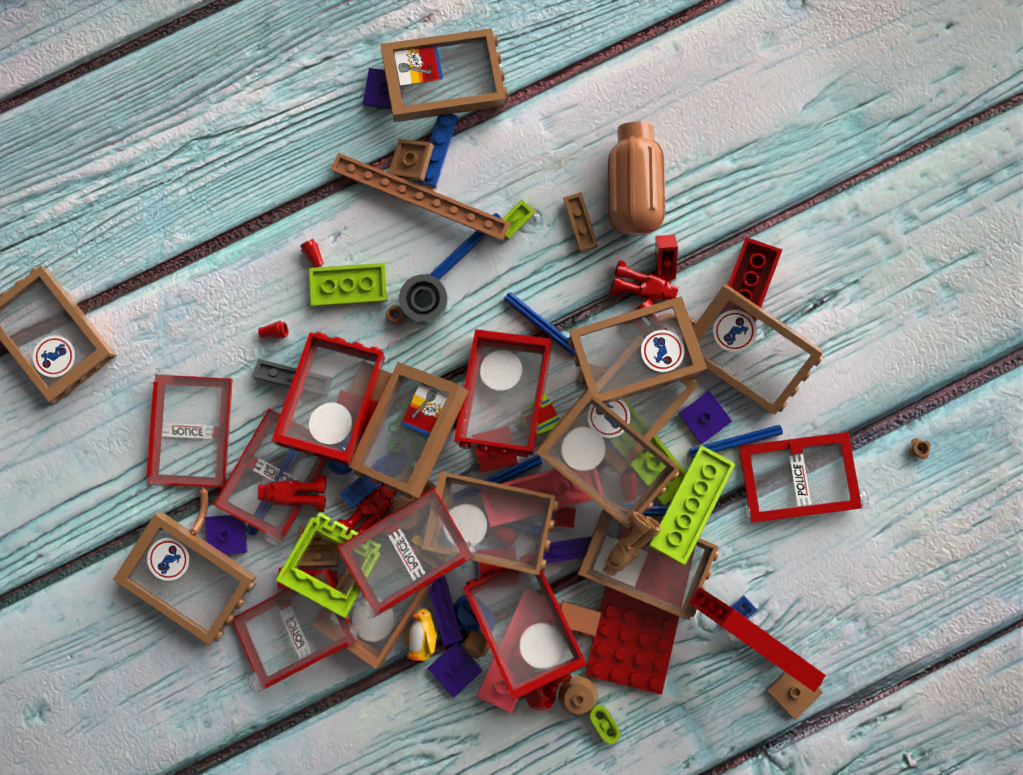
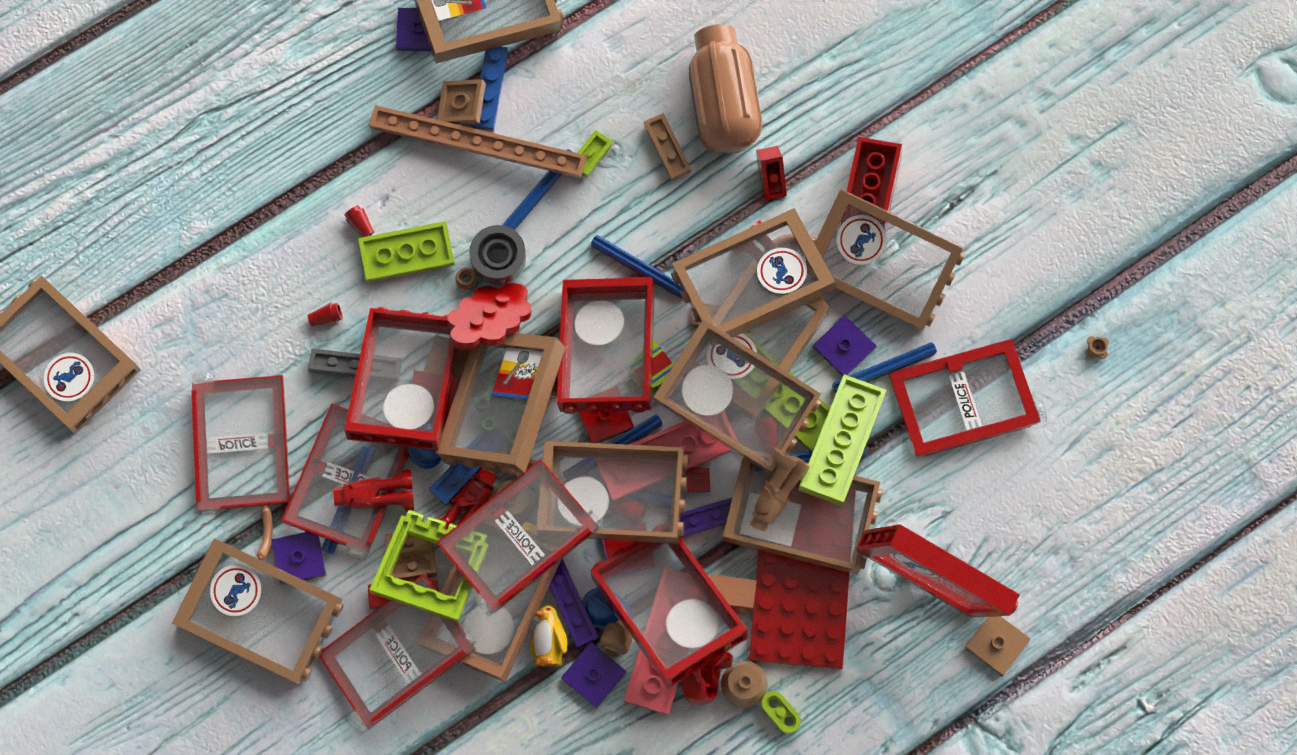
camera: 15 degrees left, 10 degrees down
(408, 354) = (489, 316): none -> plate
(652, 287) = (760, 206): red piece -> none

